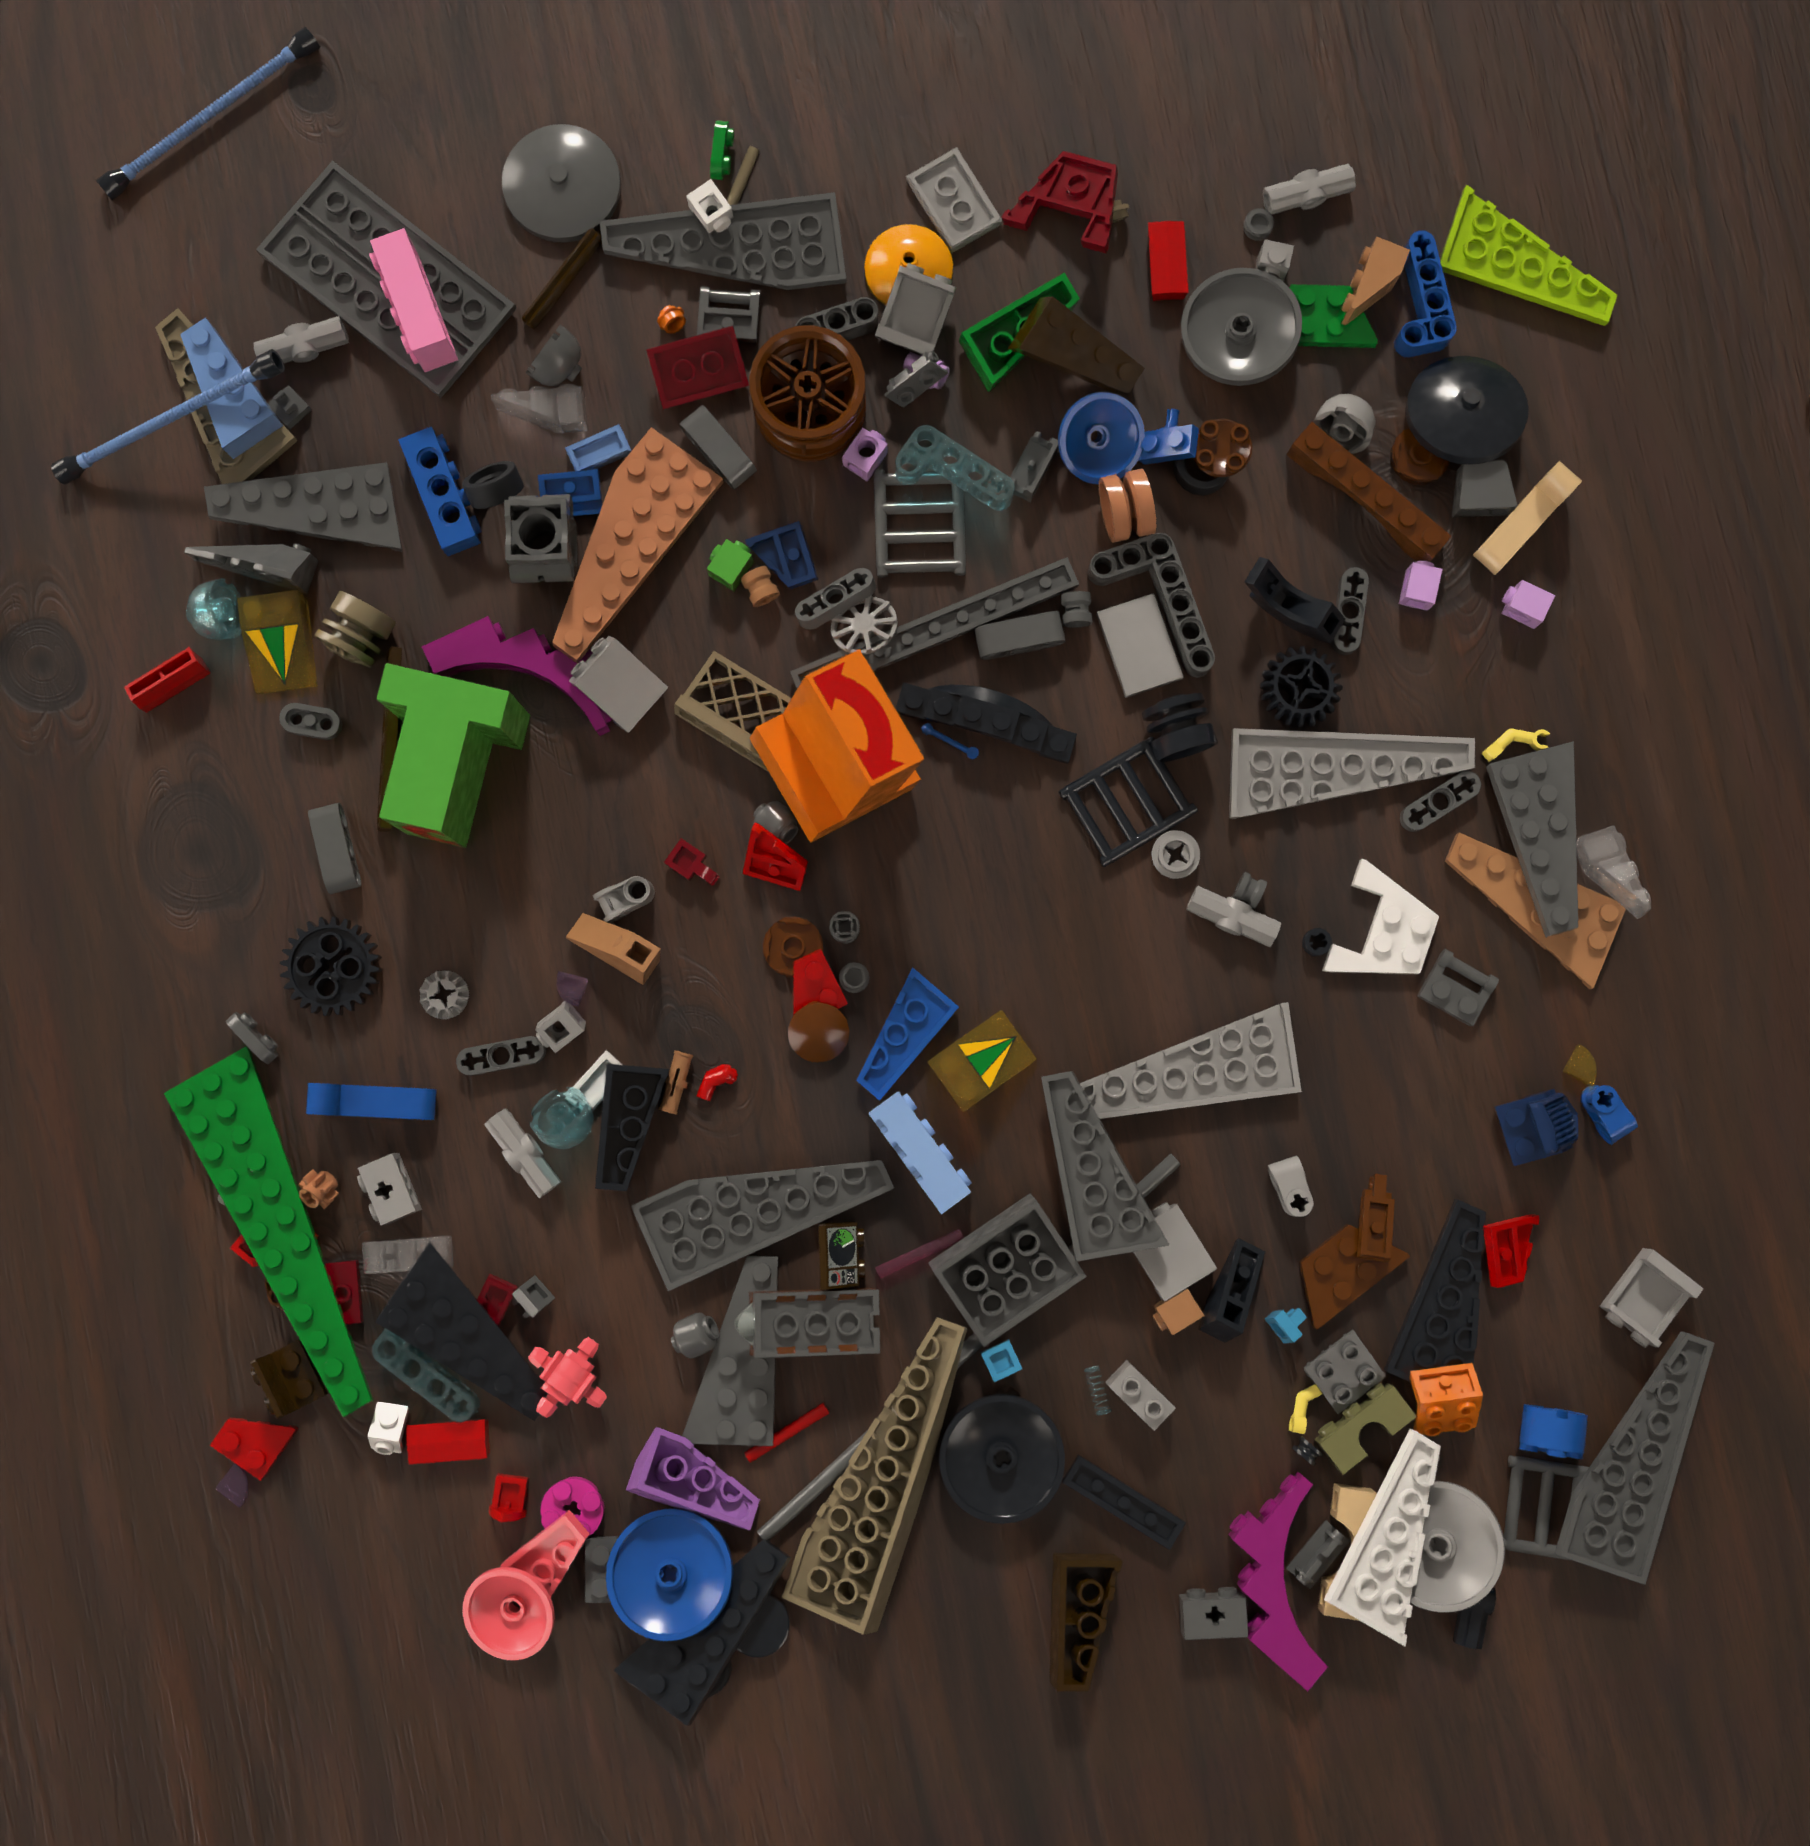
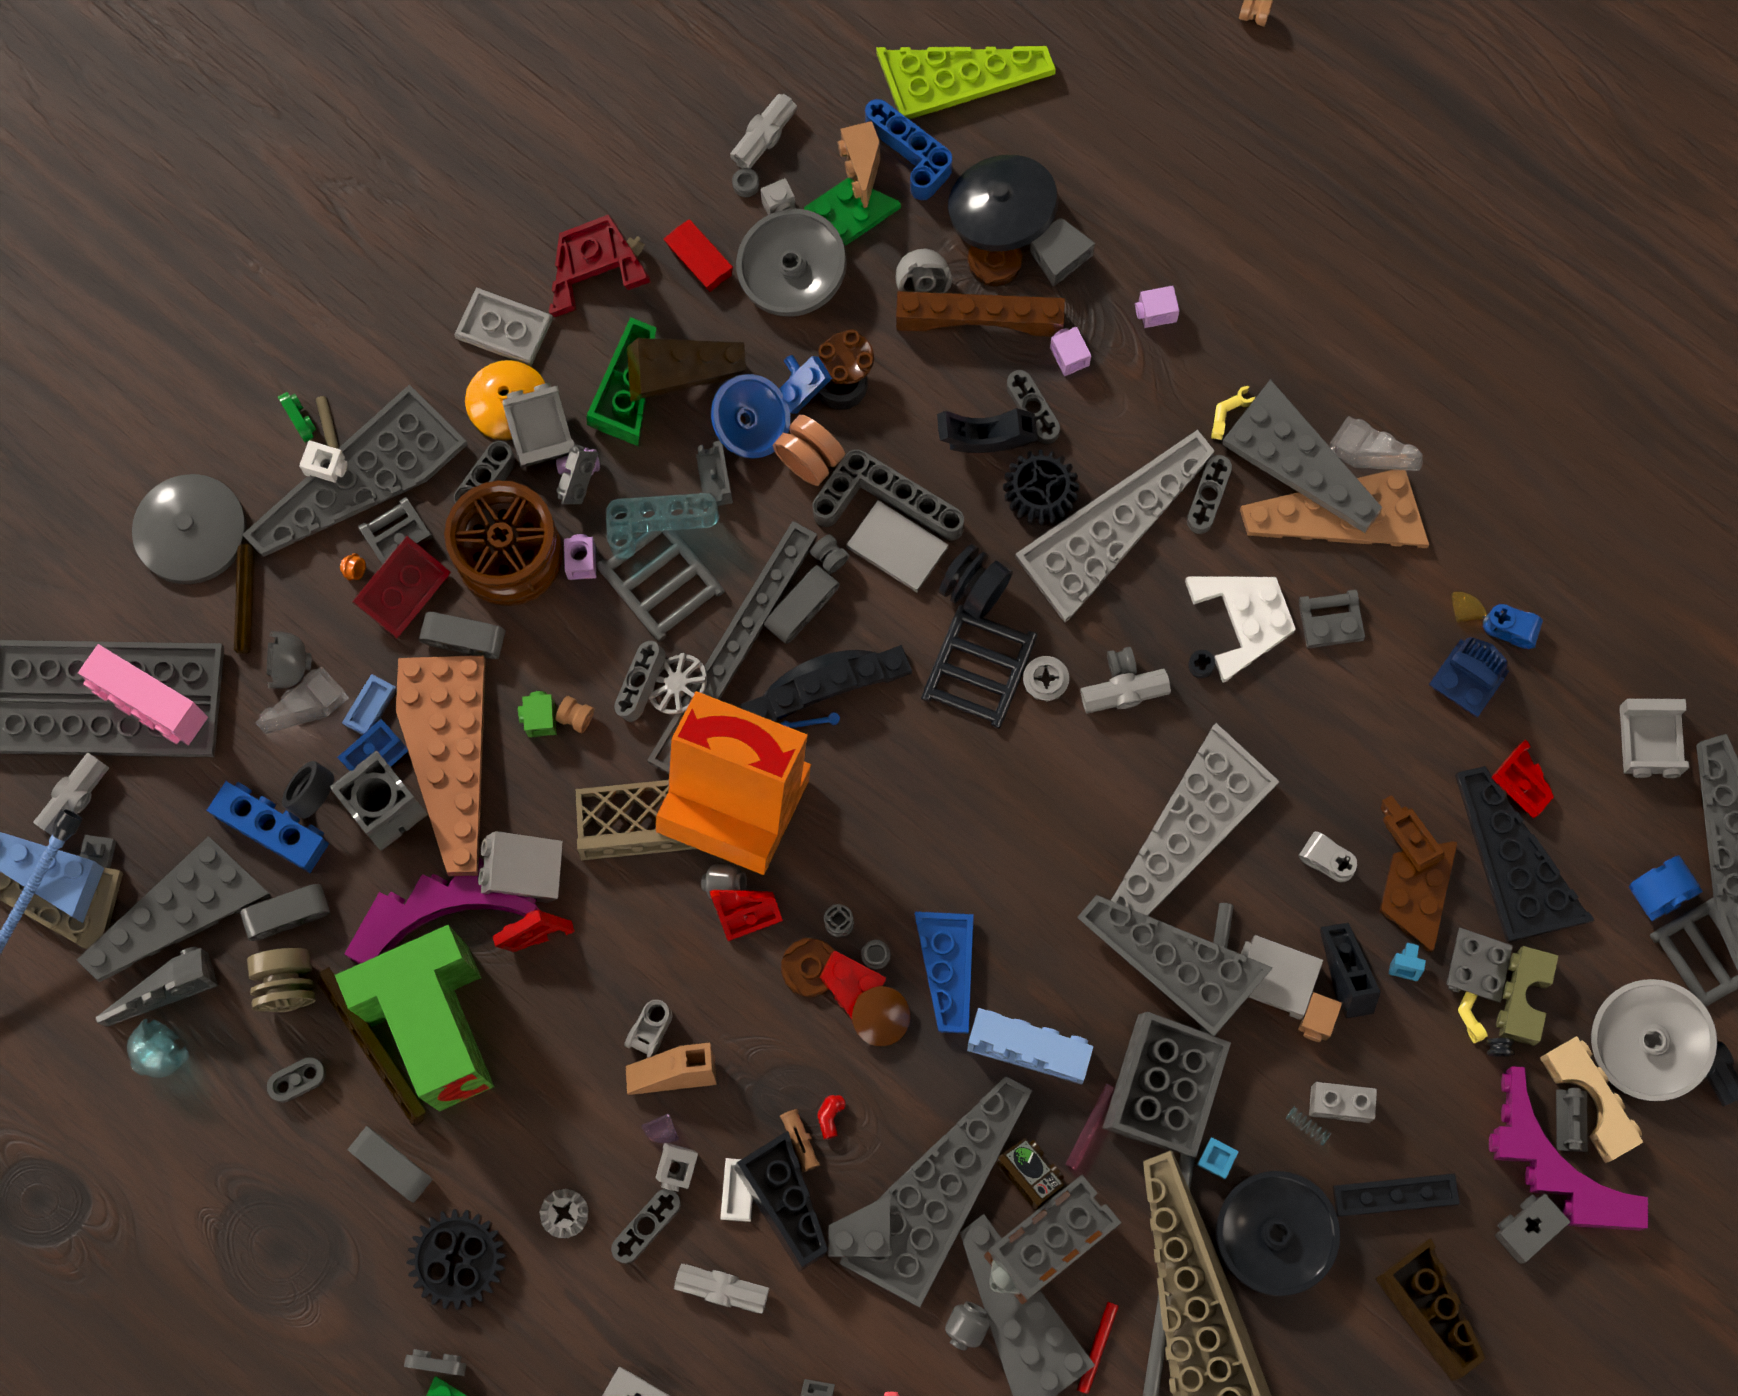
camera: 30 degrees left, 10 degrees down
(167, 680) = (155, 1133): red piece -> none
(278, 641) = (223, 1037): clear yellow slope -> none
(371, 1101) = (570, 1340): blue beam -> none
(402, 574) = (285, 912): none -> dark grey beam
(562, 1118) = (733, 1235): clear light blue cylinder -> none
(588, 742) = (531, 930): none -> red wing
(667, 1197) = (862, 1232): none -> dark grey wing
(689, 861) = (678, 962): dark red plate -> none
(786, 554) = (576, 676): dark blue wing -> none
(981, 1061) = (1022, 944): clear yellow slope -> none
(1387, 1550) = (1618, 1073): white wing -> none
(1446, 1399) = (1570, 925): orange bracket -> none
(1527, 517) = (1108, 246): tan beam -> none

